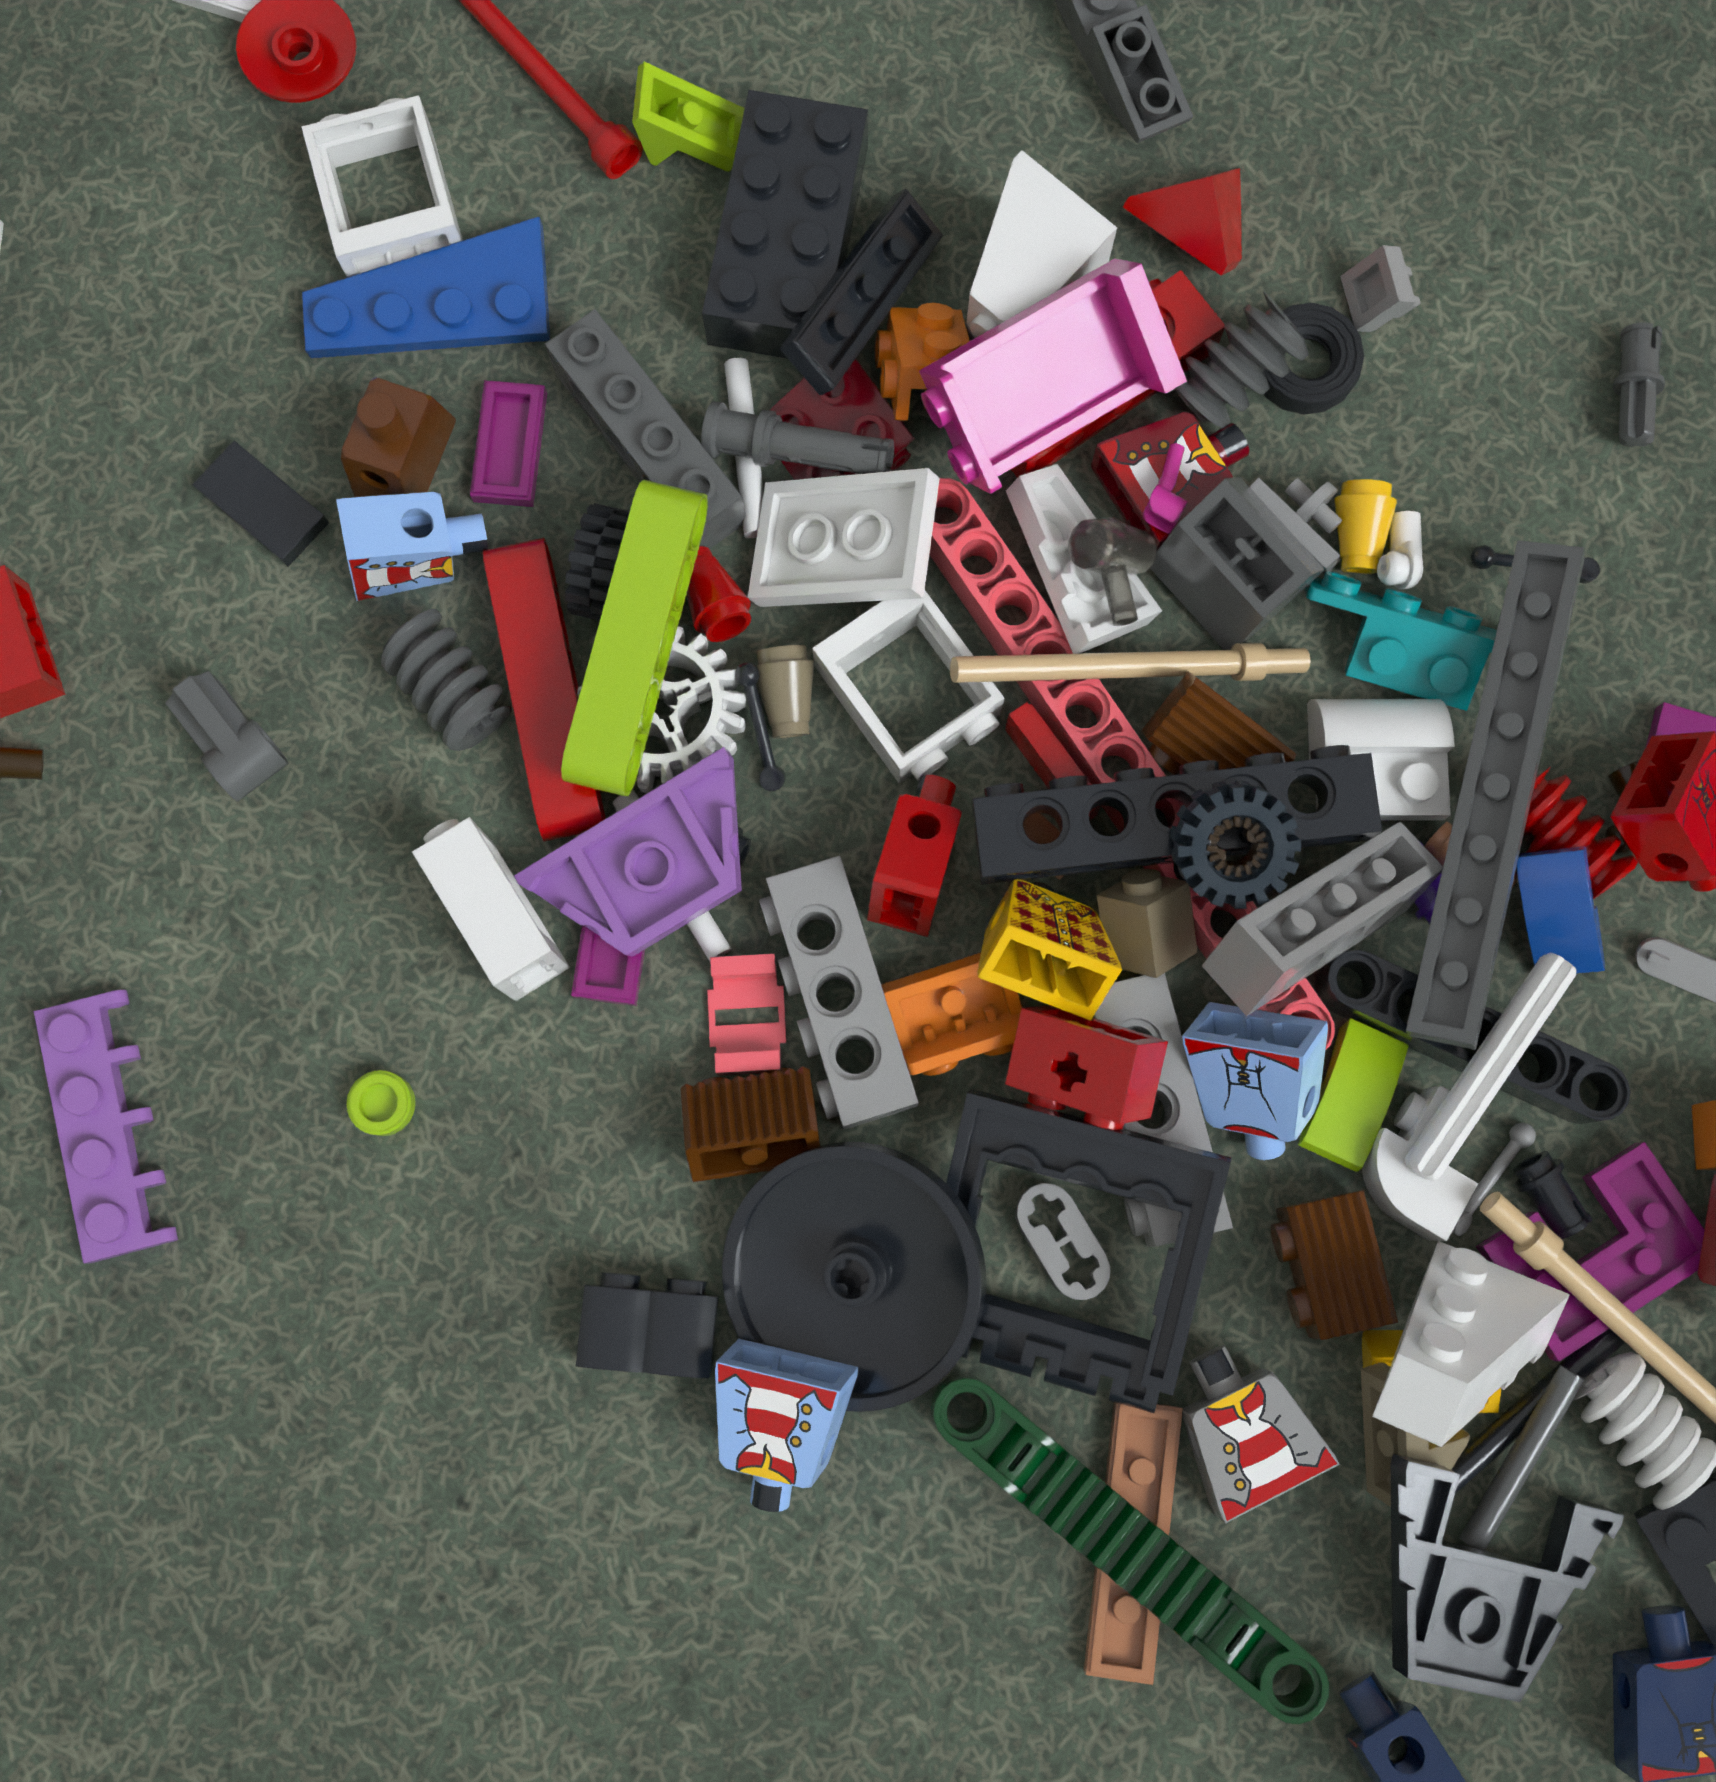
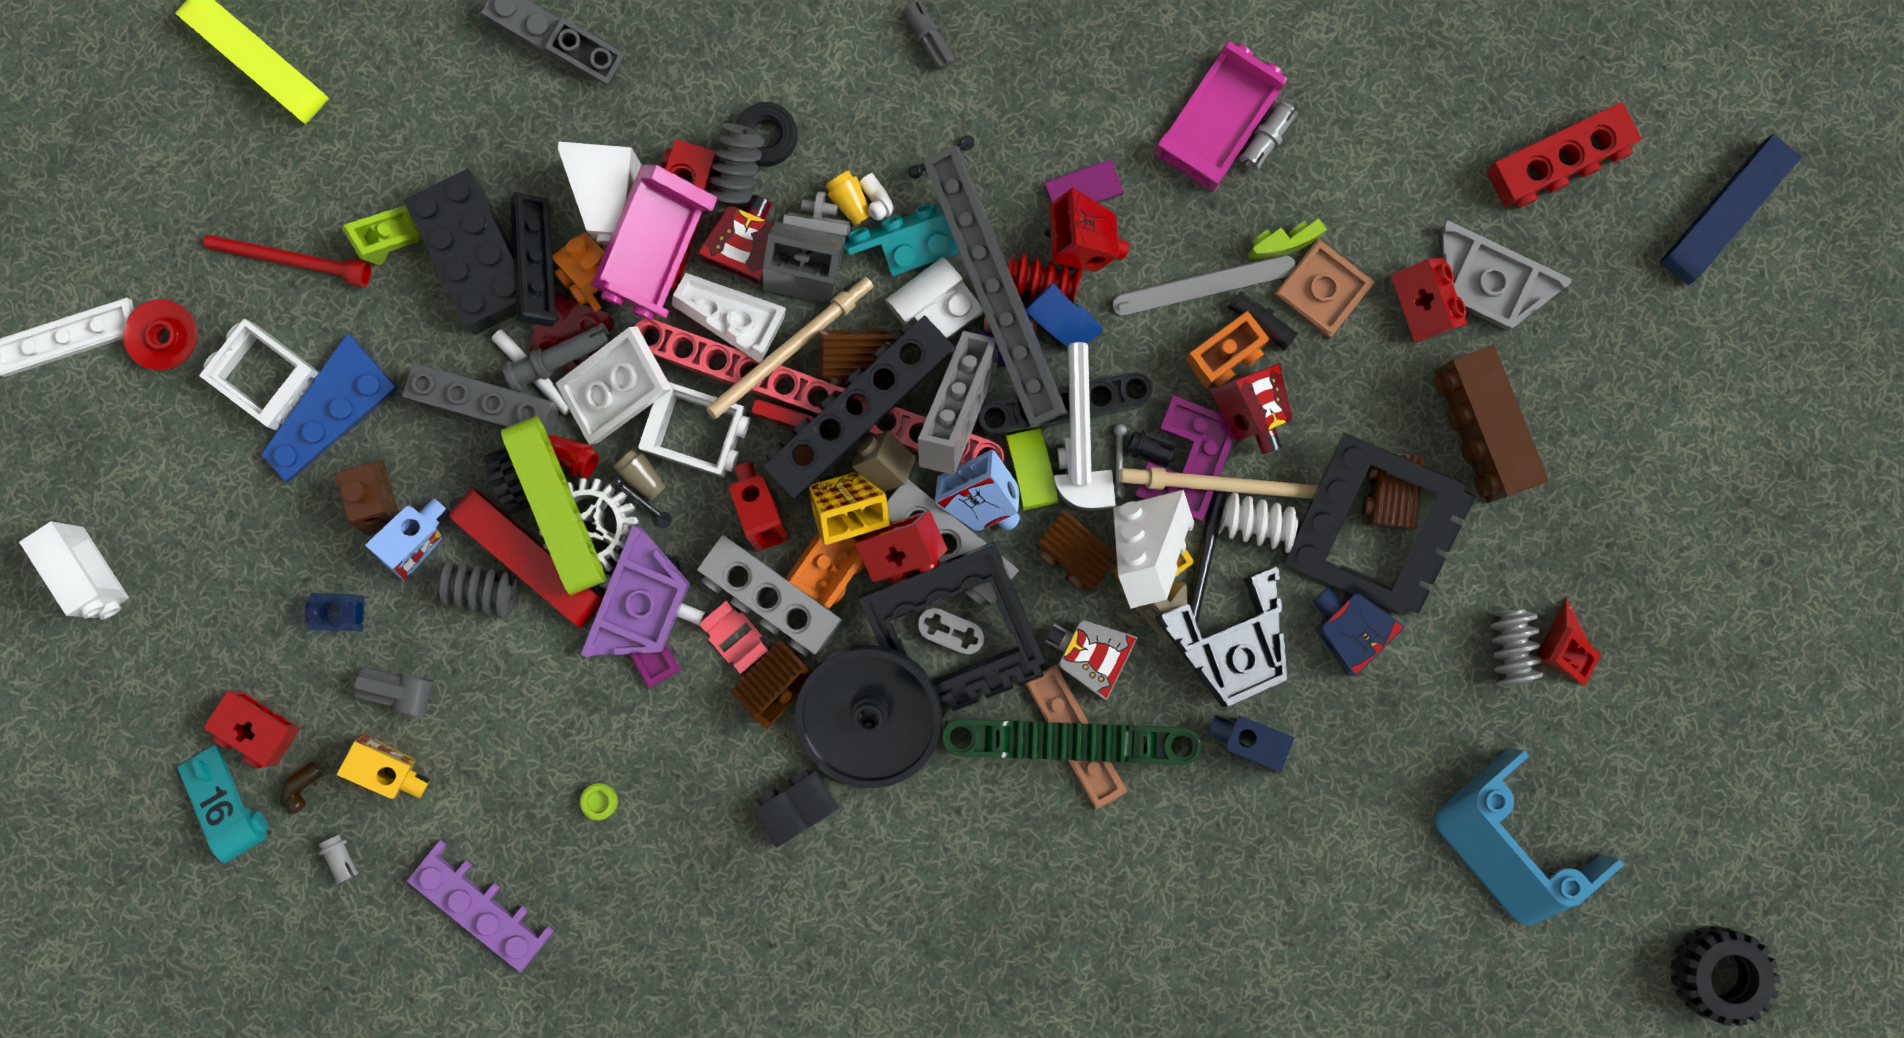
camera: 40 degrees left, 5 degrees up
(102, 810) = (367, 764): none -> yellow torso
(245, 592) = (350, 617): none -> clear blue brick
(261, 503) = (322, 569): black tile -> none
(489, 908) = (581, 677): white window -> none
(508, 443) = (418, 453): magenta tile -> none
(779, 1417) = (882, 801): torso -> none
(1114, 552) = (742, 300): clear smoke piece -> none
(1164, 506) = (750, 262): dark pink hand -> none
(1197, 217) = (663, 102): red slope -> none
(1264, 825) = (883, 419): black bush -> none
(1379, 289) = (775, 76): light grey tile -> none
(1522, 1458) = (1216, 574): dark grey bar -> none

